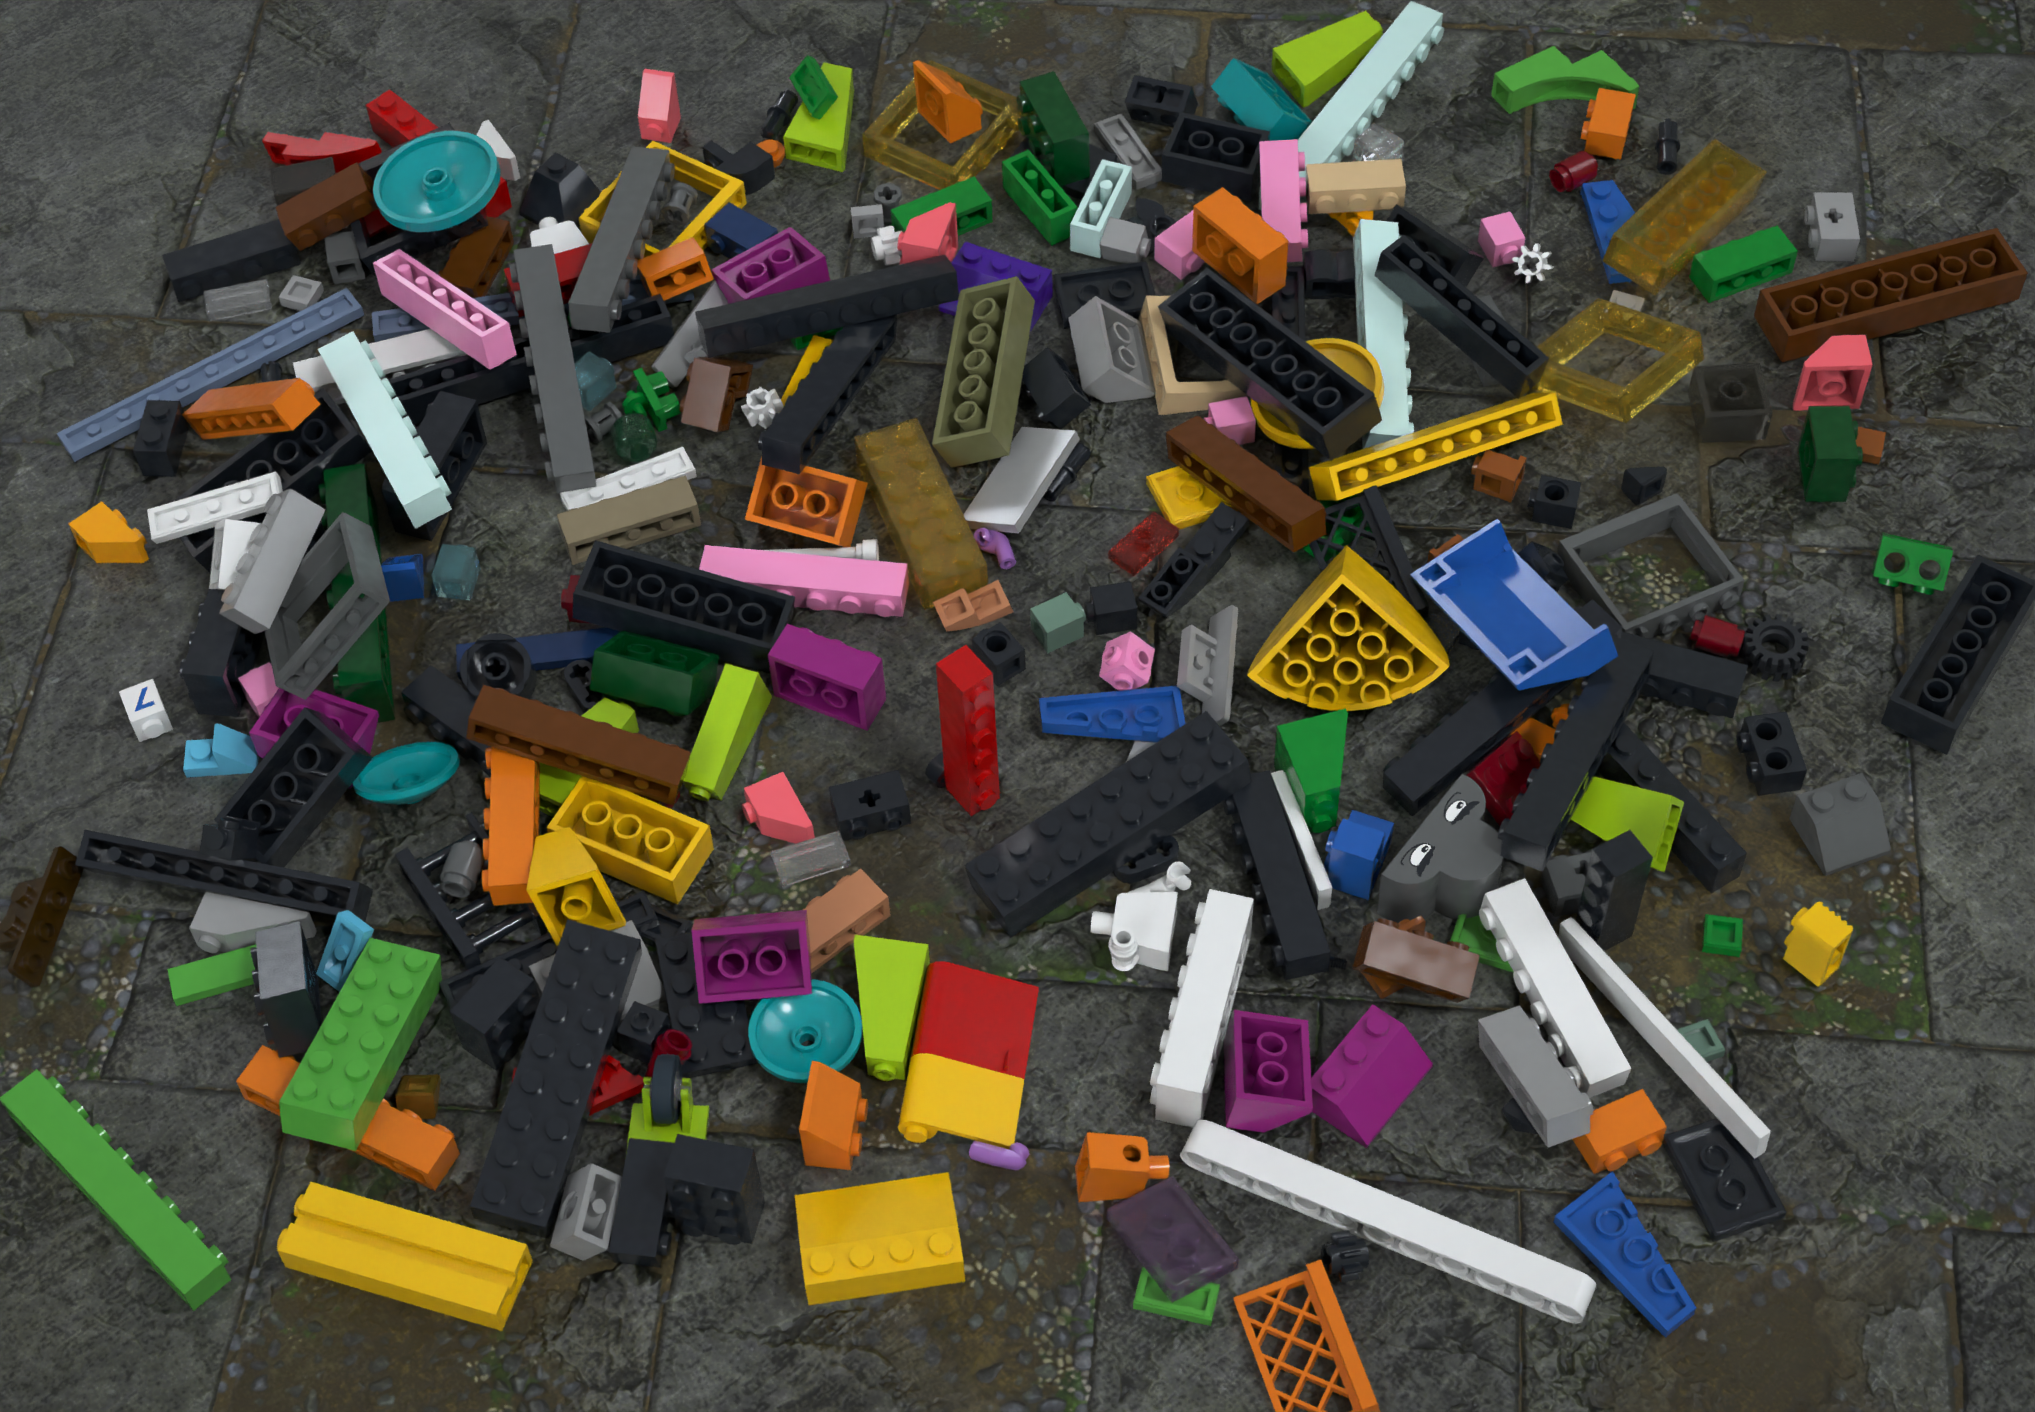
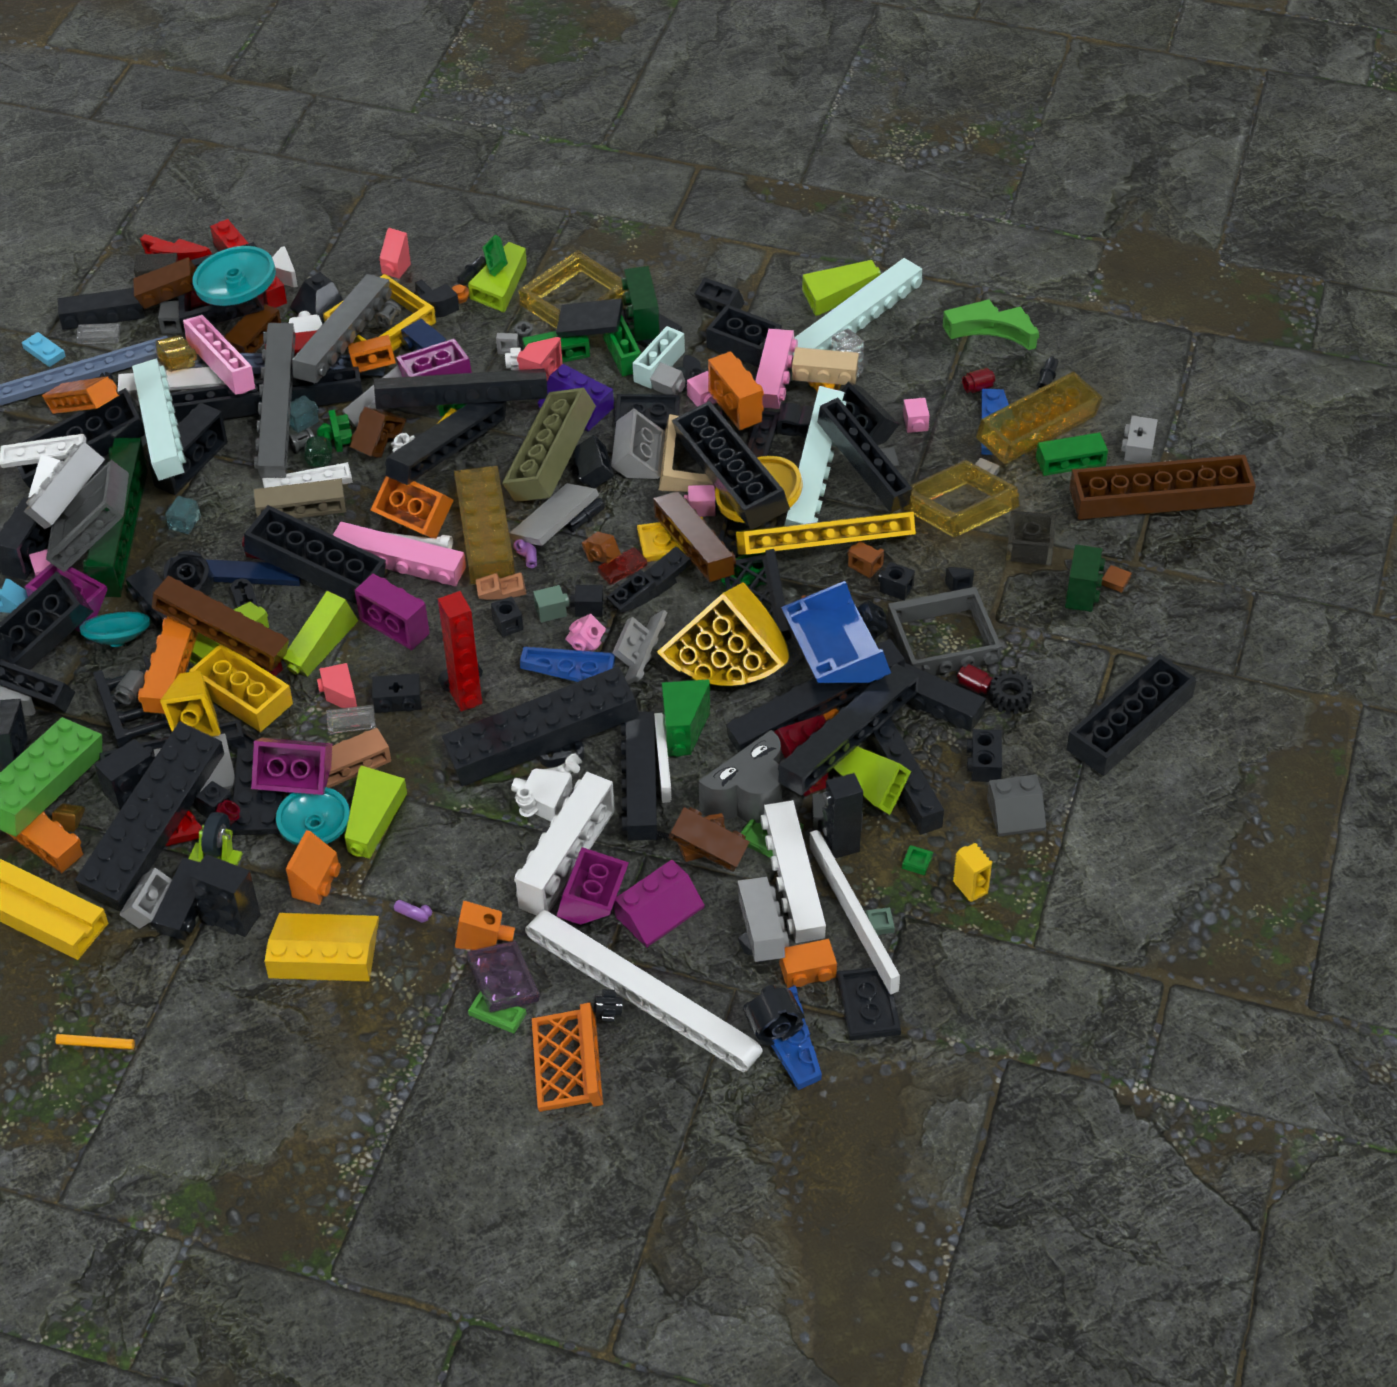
camera: 10 degrees right, 5 degrees down
(159, 339) = (43, 349): none -> medium azure plate
(161, 438) = (25, 408): black brick -> none
(300, 293) = (137, 334): light grey plate -> none
(343, 948) = (46, 718): medium azure slope -> none
(373, 316) = (175, 353): none -> clear yellow brick
(404, 577) = (149, 513): blue slope -> none
(654, 673) = (283, 591): dark green brick -> none
(945, 103) = (575, 276): orange slope -> none
(968, 1056) = (411, 849): door -> none
(985, 164) = (589, 318): none -> black tile
(1107, 521) = (601, 547): none -> dark orange brick
(1124, 142) = (691, 325): light grey tile -> none
(1259, 101) = (785, 306): teal slope -> none
(1357, 853) = (692, 765): blue brick -> none
(1524, 260) = (936, 435): white gear -> none
(1607, 1230) = (774, 1015): none -> black brick
(1608, 124) = (1011, 353): orange brick -> none
(1835, 374) = (1105, 528): coral slope -> none
(1914, 554) = (1119, 649): green brick -> none

